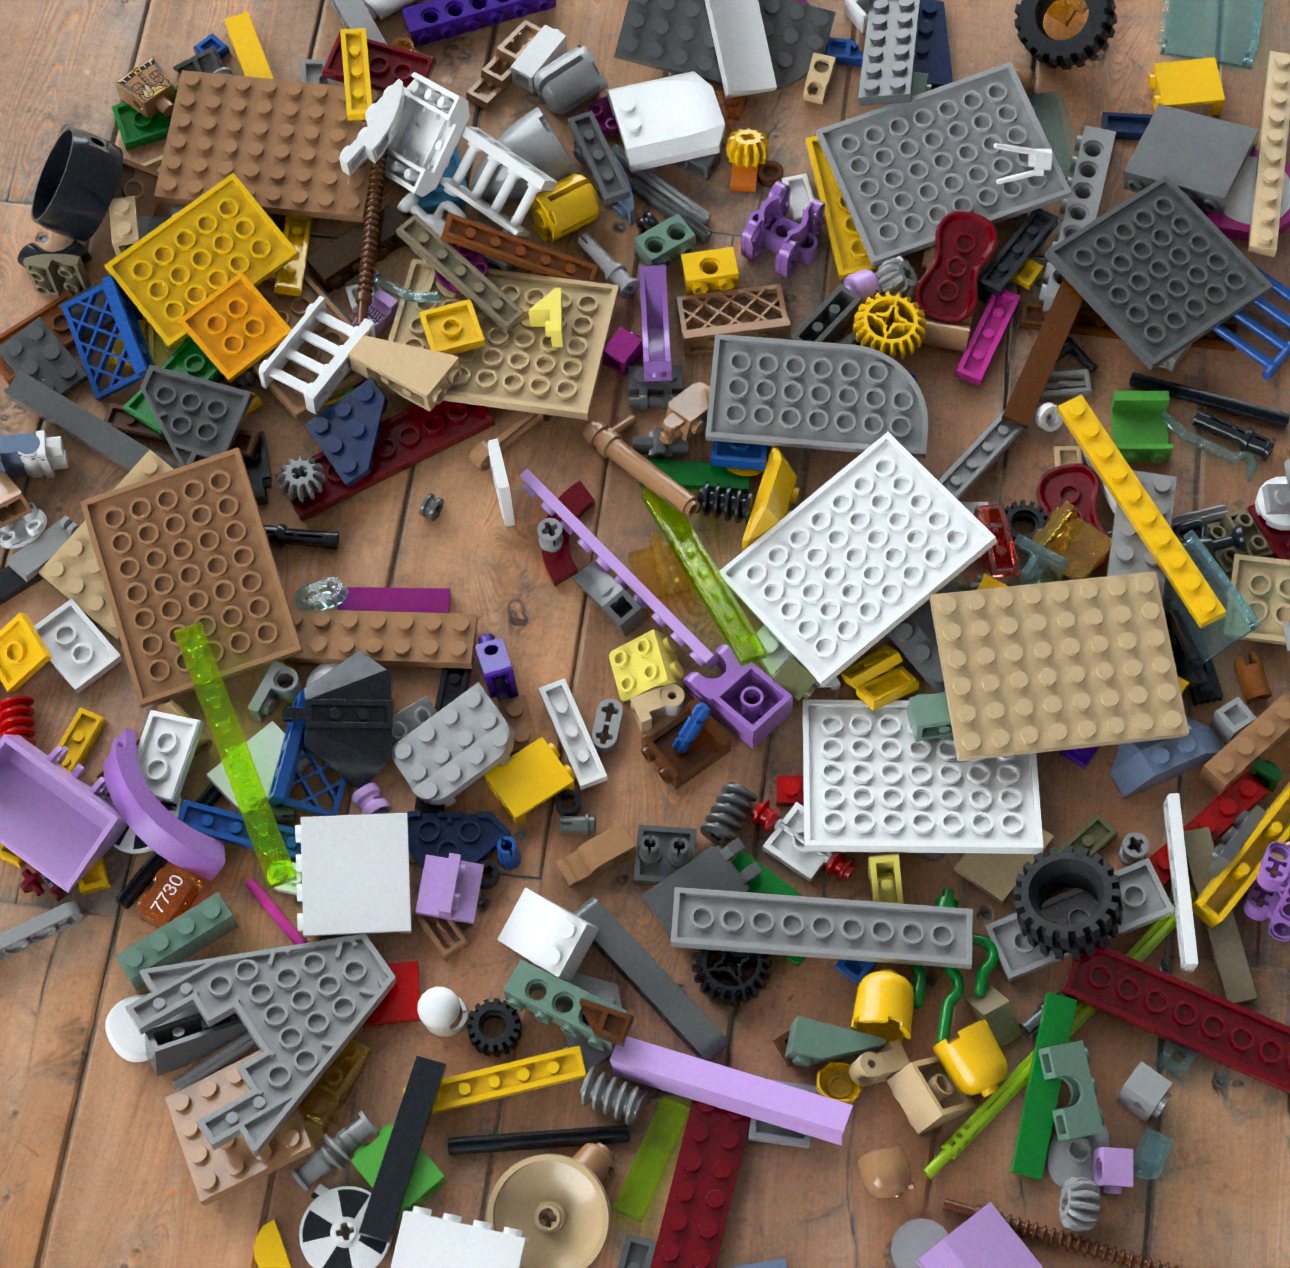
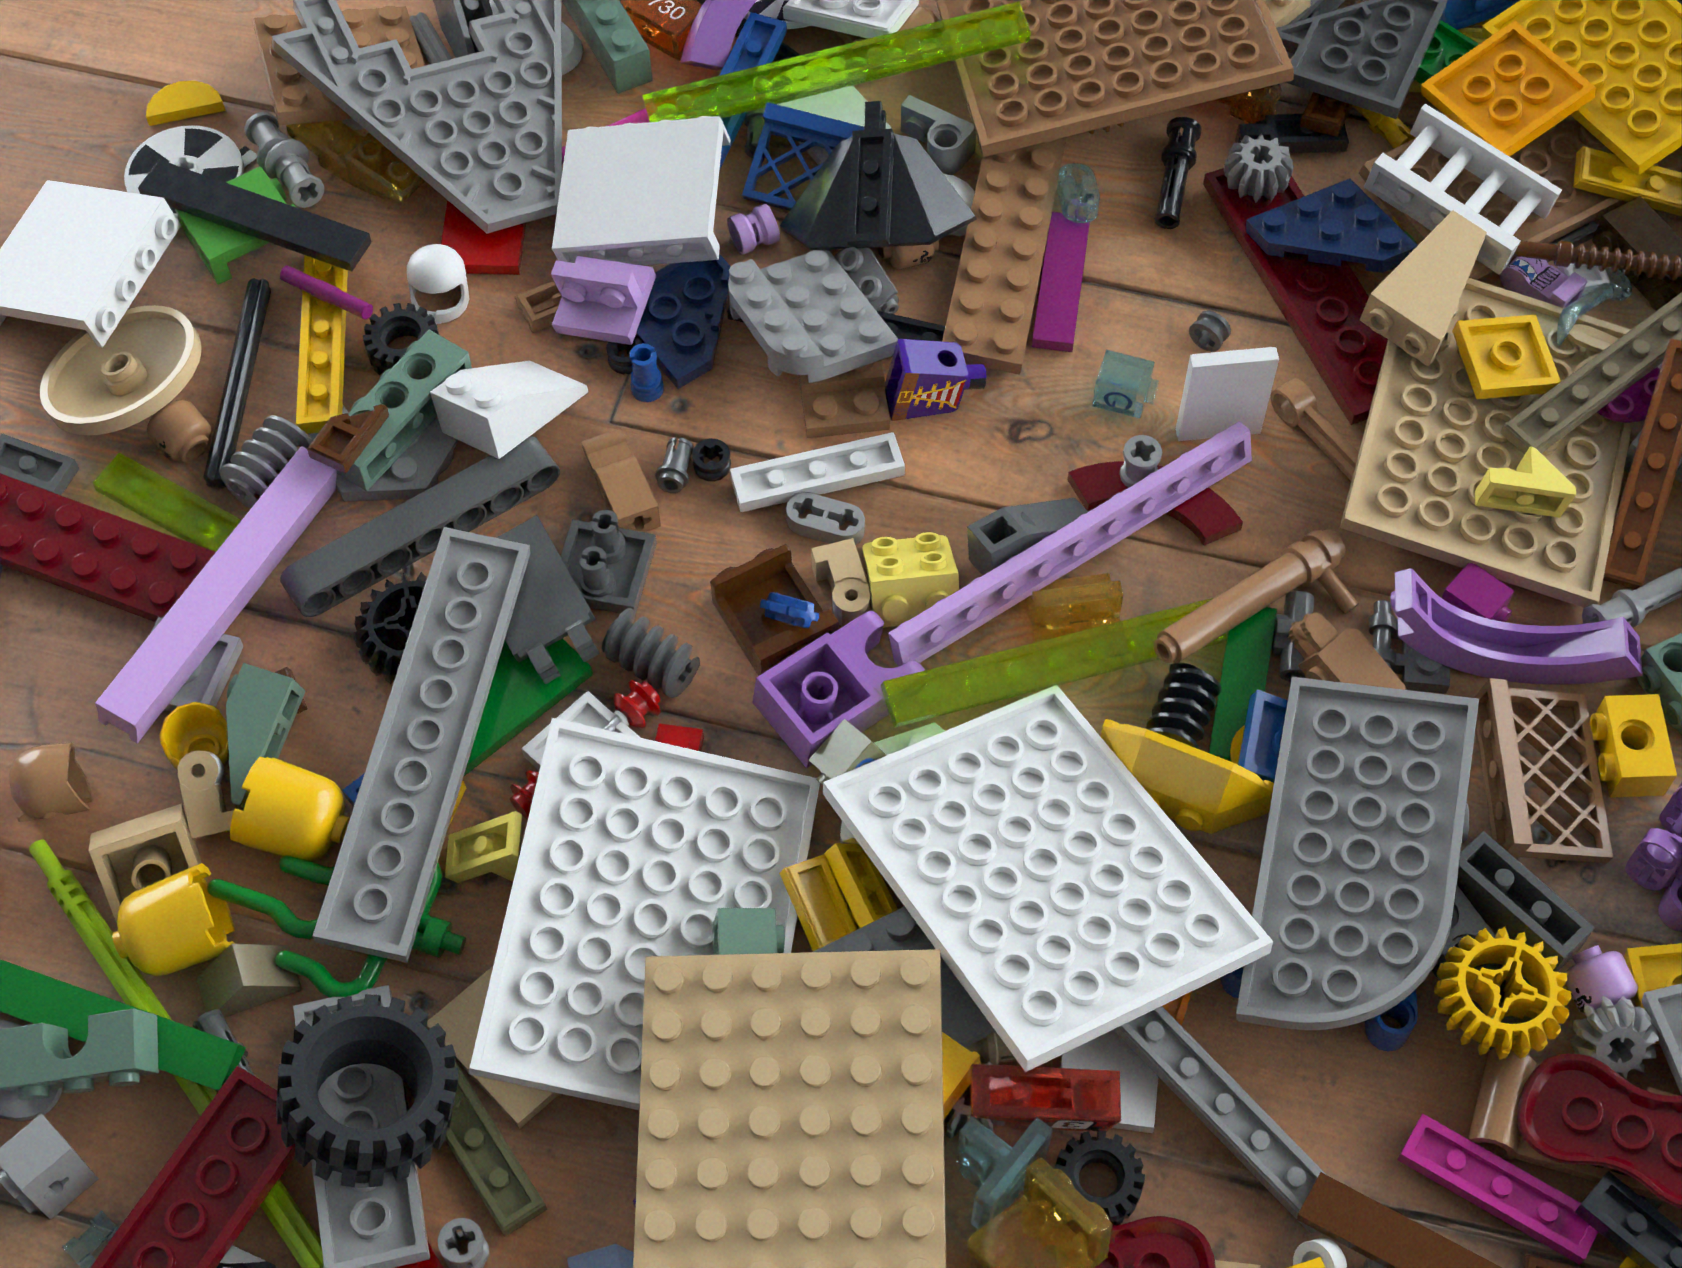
camera: 95 degrees right, 5 degrees down
(465, 1082) = (326, 292): none -> magenta piece
(482, 554) = (1125, 384): none -> clear light blue brick
(529, 779) = (751, 409): yellow panel -> none

